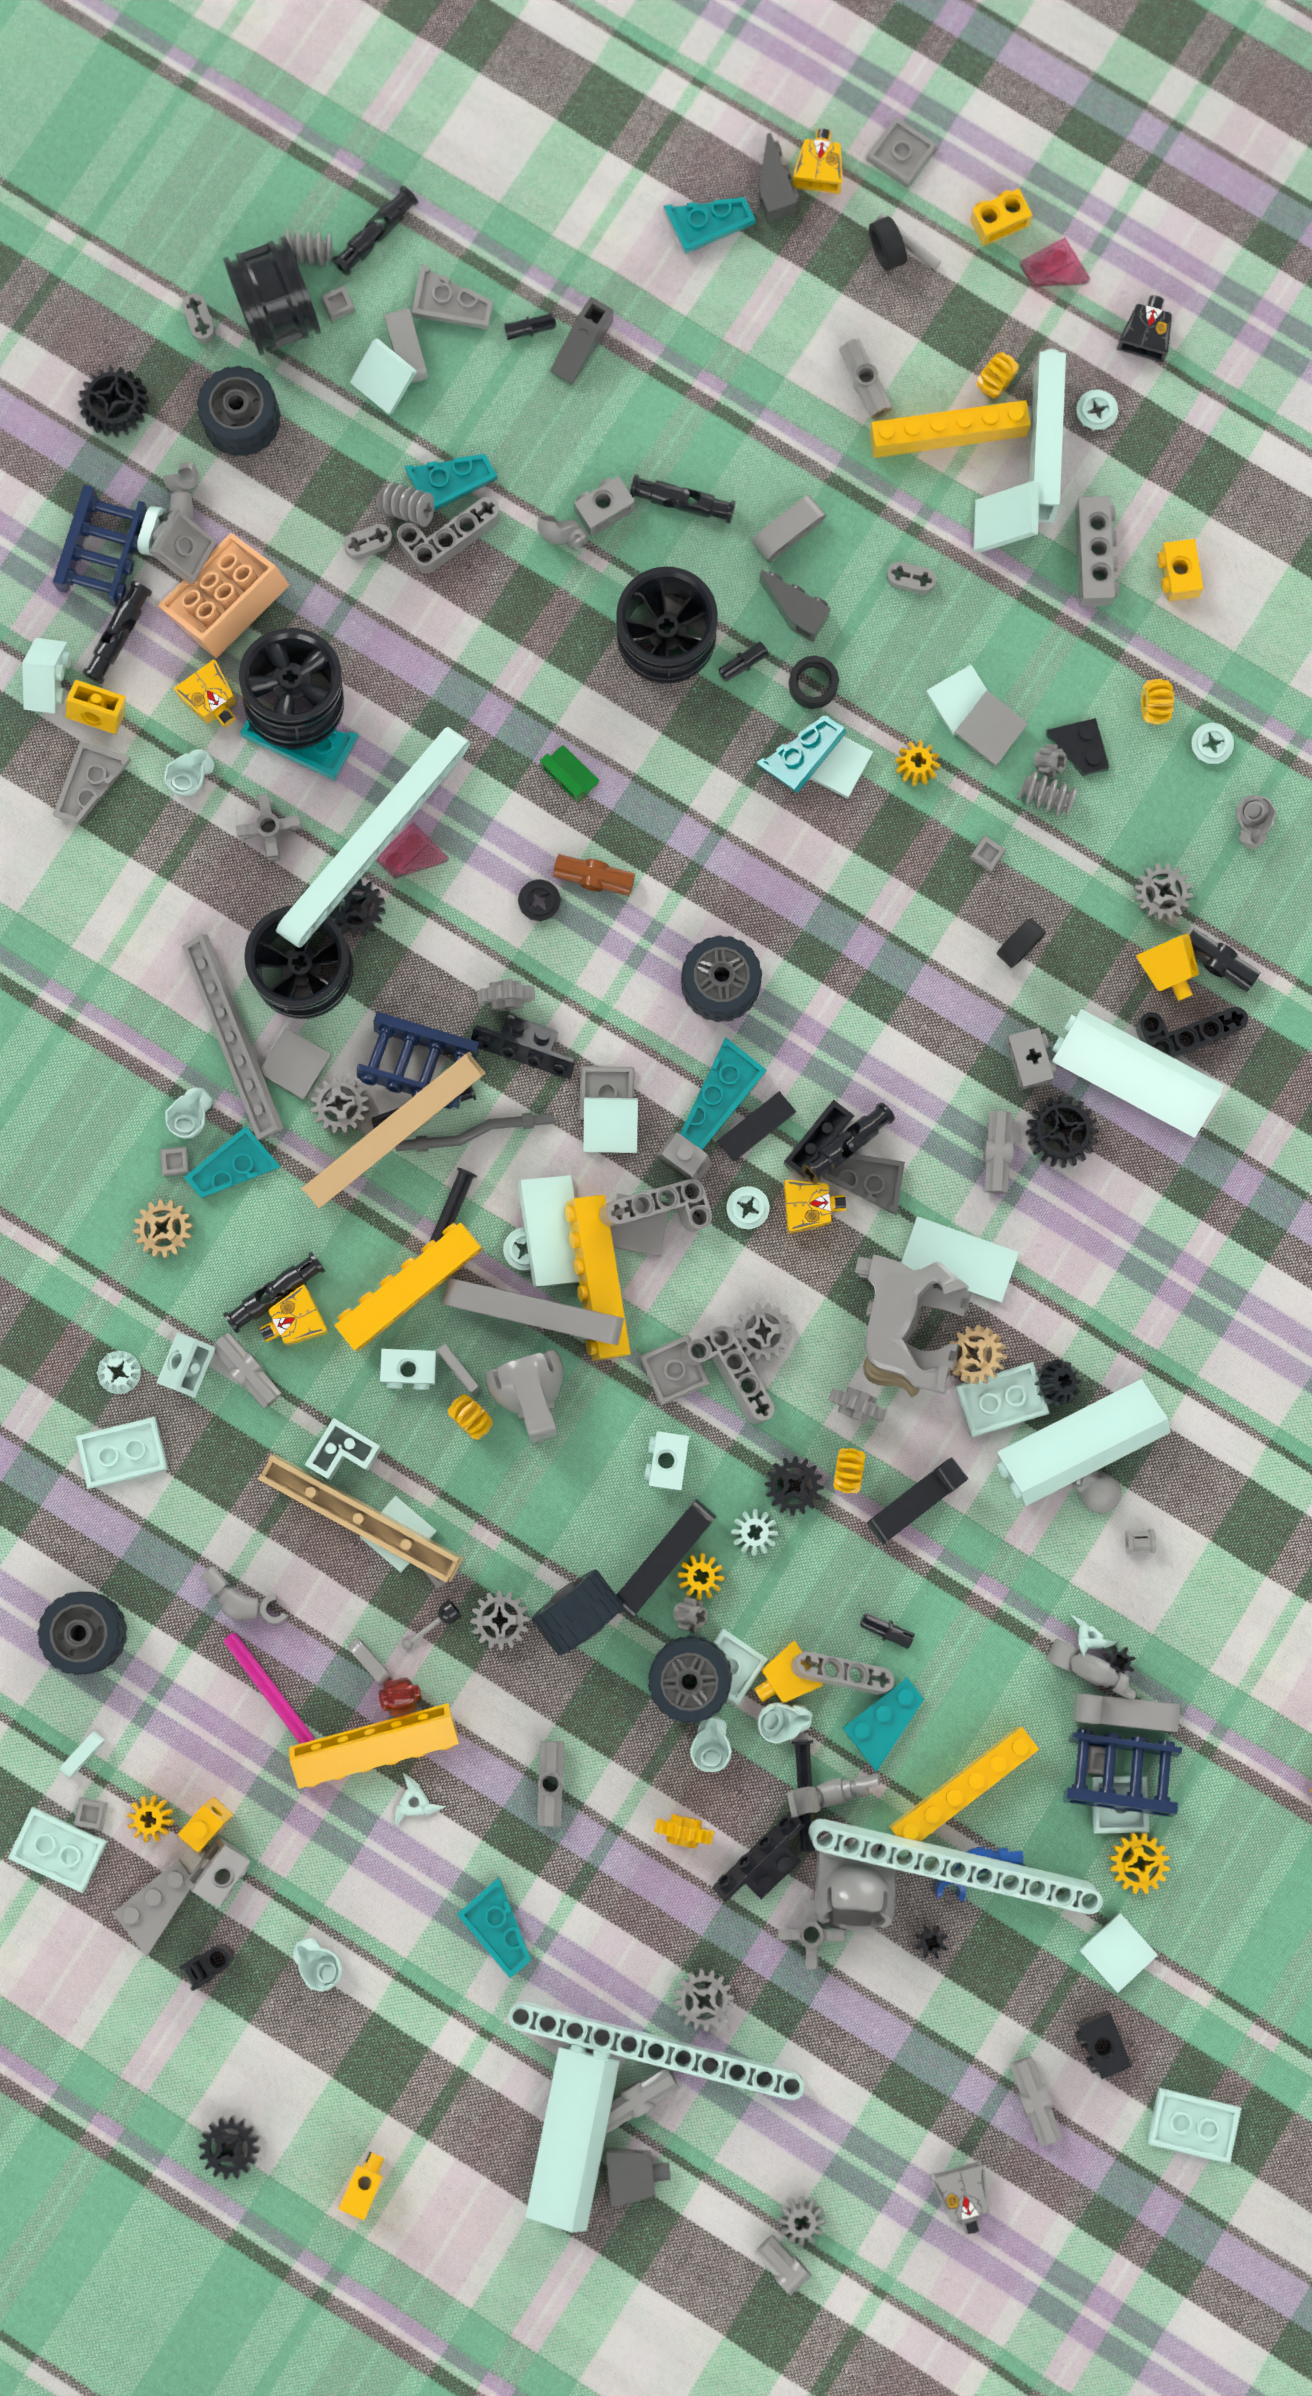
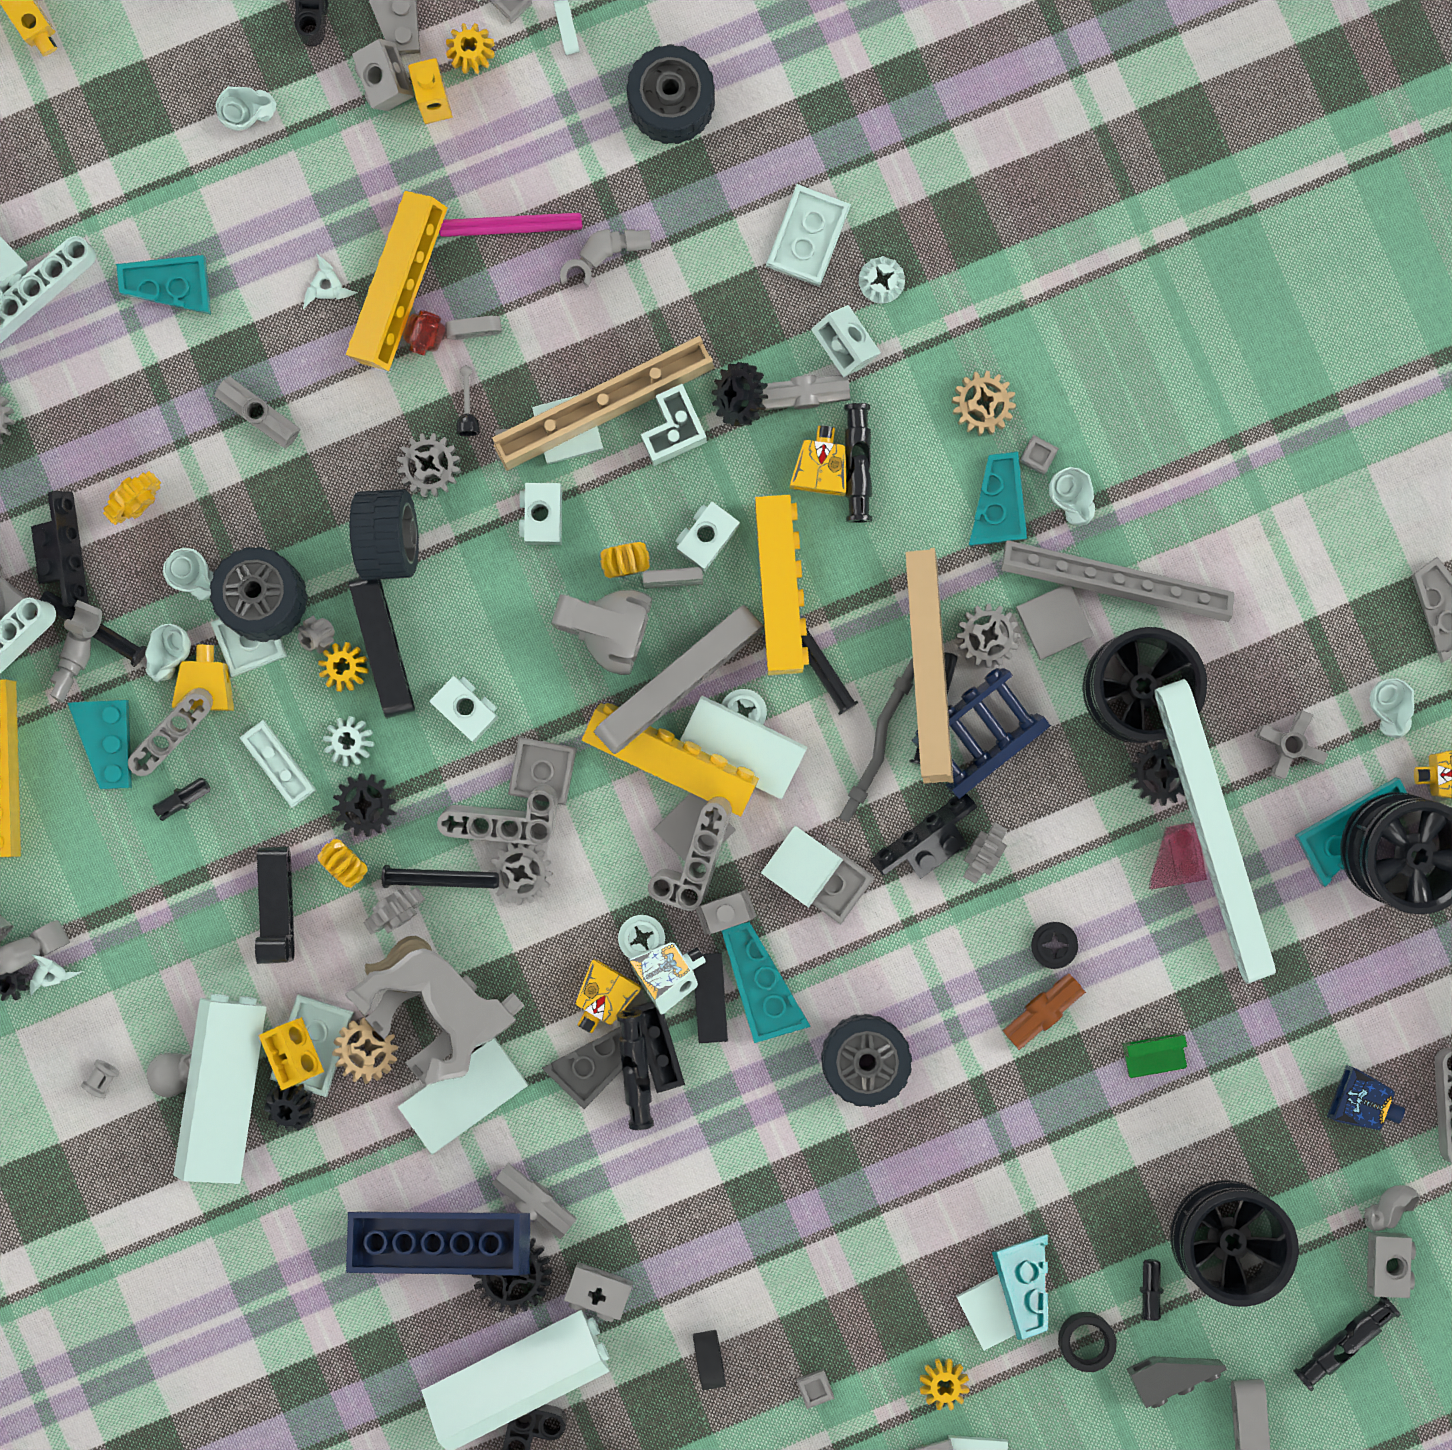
camera: 125 degrees right, 5 degrees up
(282, 1417) = (739, 394): none -> black gear
(462, 1507) = (546, 531): none -> light aqua brick
(498, 601) = (1364, 1101): none -> dark blue torso
(761, 1168) = (667, 974): none -> torso
(809, 1389) = (439, 878): none -> black axle
(809, 1576) = (278, 763): none -> light aqua tile
(1017, 1406) = (291, 1053): none -> yellow brick
(1078, 1198) = (438, 1243): none -> dark blue brick

